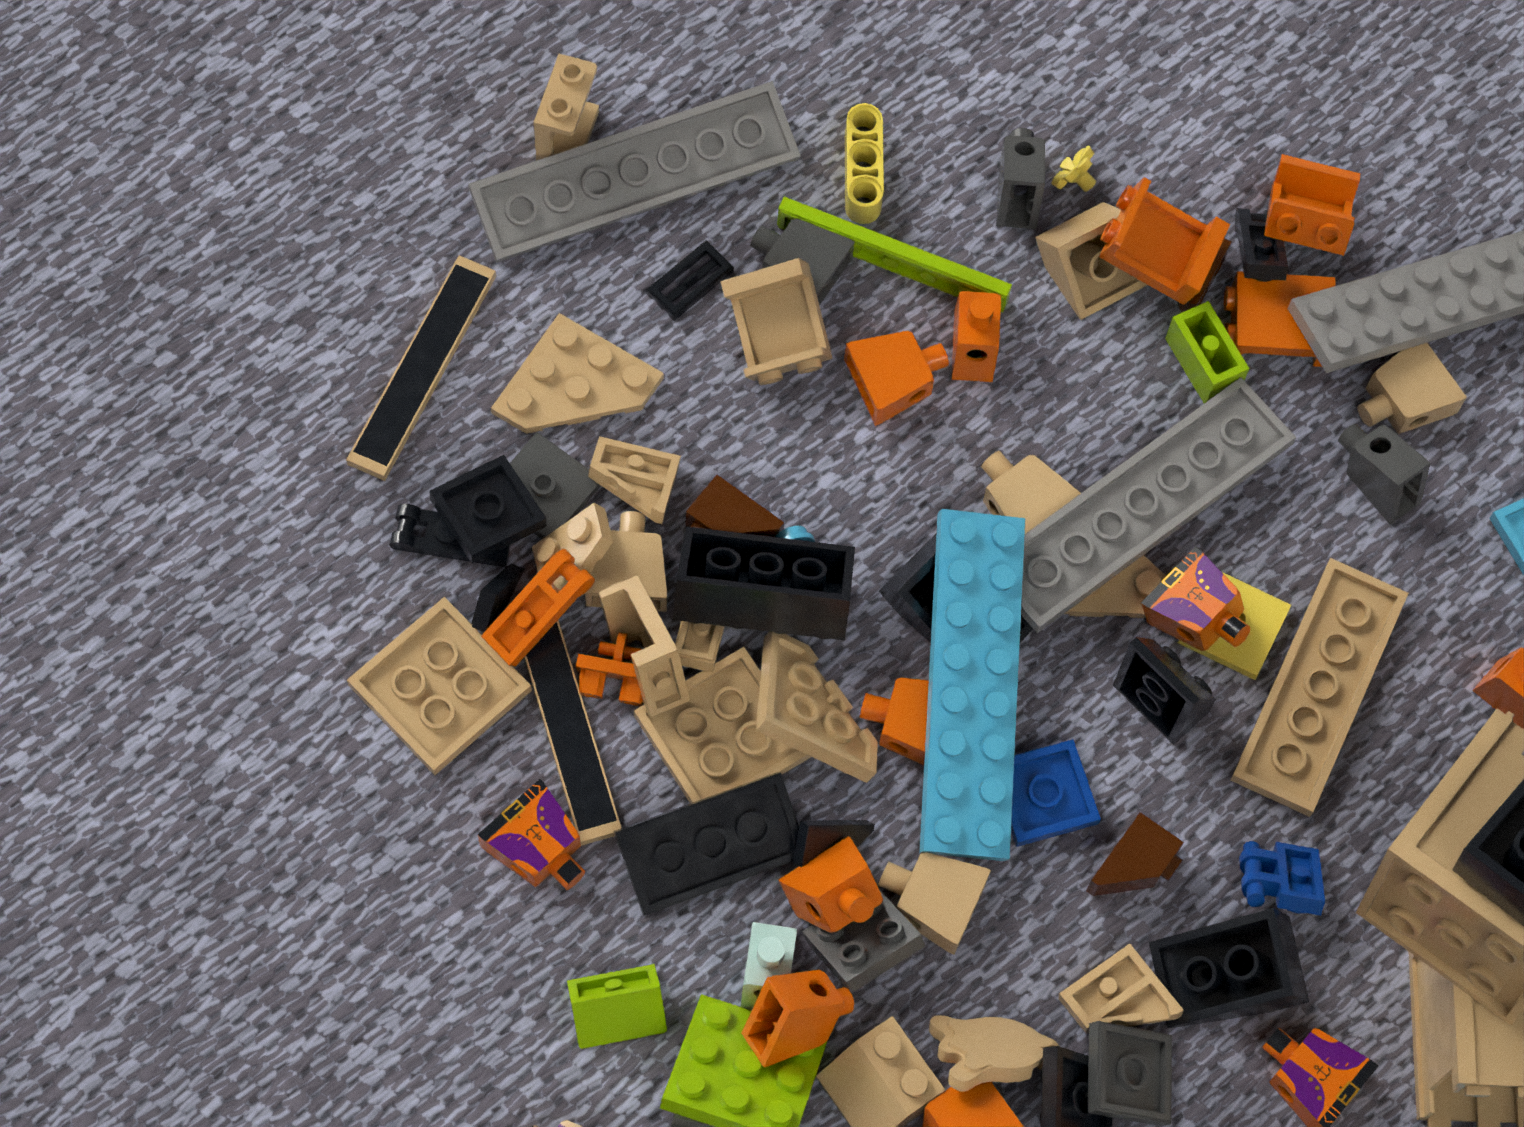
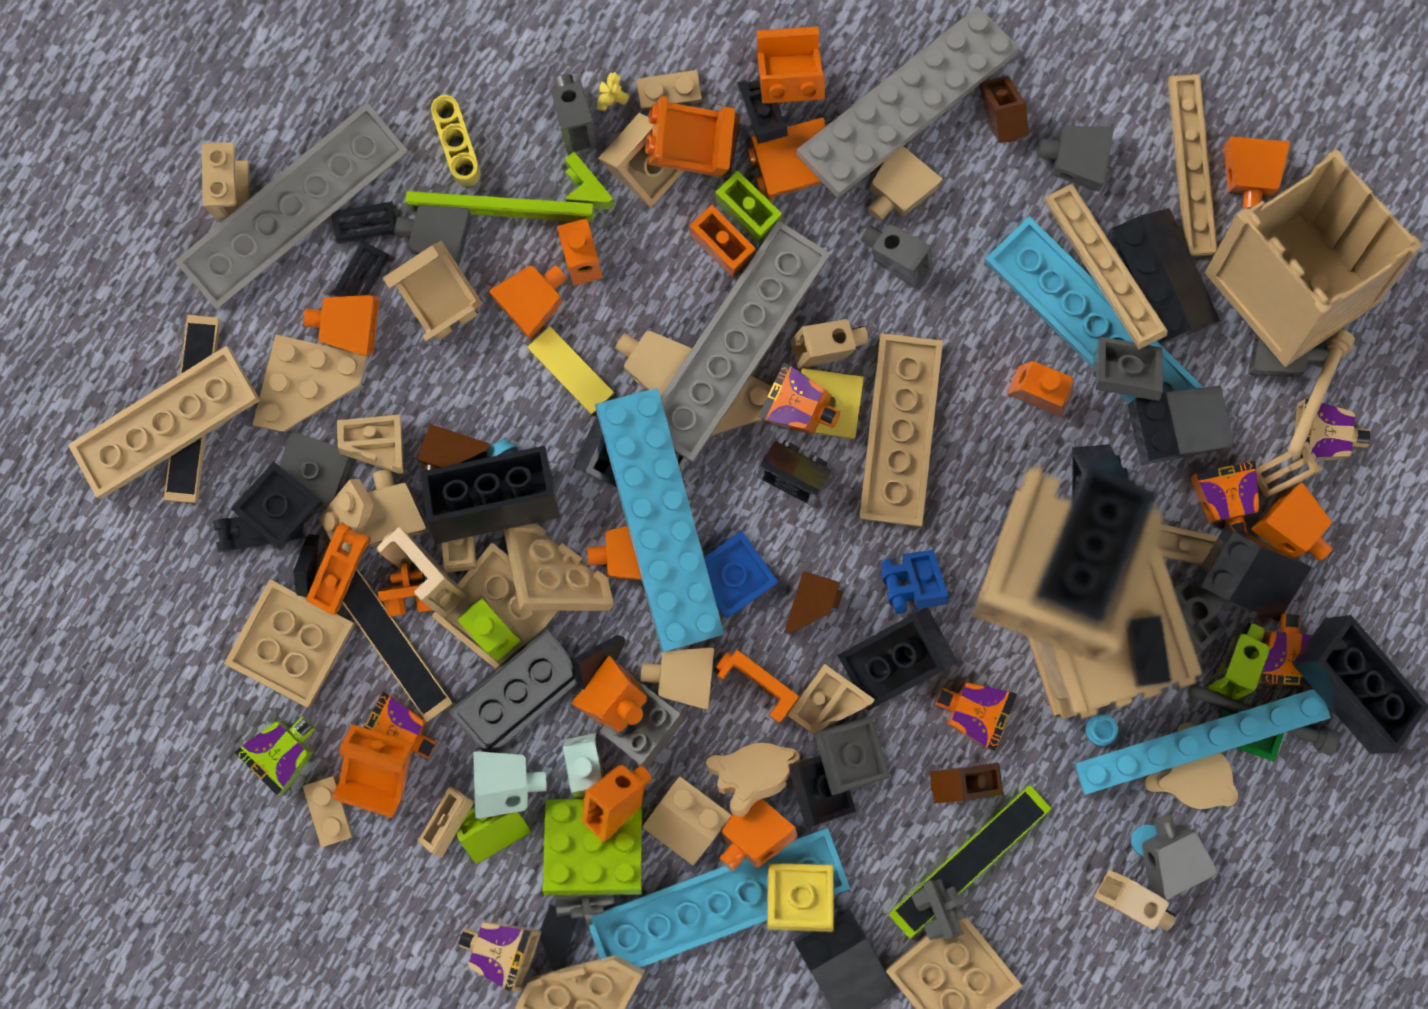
camera: 15 degrees left, 15 degrees up
(374, 814) = (278, 753): none -> torso
(382, 367) = (163, 422): none -> tan plate
(409, 913) = (327, 814): none -> tan plate
(492, 872) = (373, 770): none -> orange panel
(560, 976) = (445, 821): none -> tan tile
(654, 324) = (346, 322): none -> orange torso
(655, 949) = (503, 783): none -> light aqua torso
(704, 741) = (488, 629): none -> lime torso
(715, 235) = (370, 233): none -> black tile
(912, 472) = (570, 370): none -> light yellow tile
(1010, 263) = (590, 189): none -> lime slope
(1041, 928) = (761, 677): none -> orange panel
(1160, 380) = (722, 241): none -> orange brick
(1169, 188) = (679, 88): none -> tan plate
(1256, 543) = (826, 342): none -> tan torso

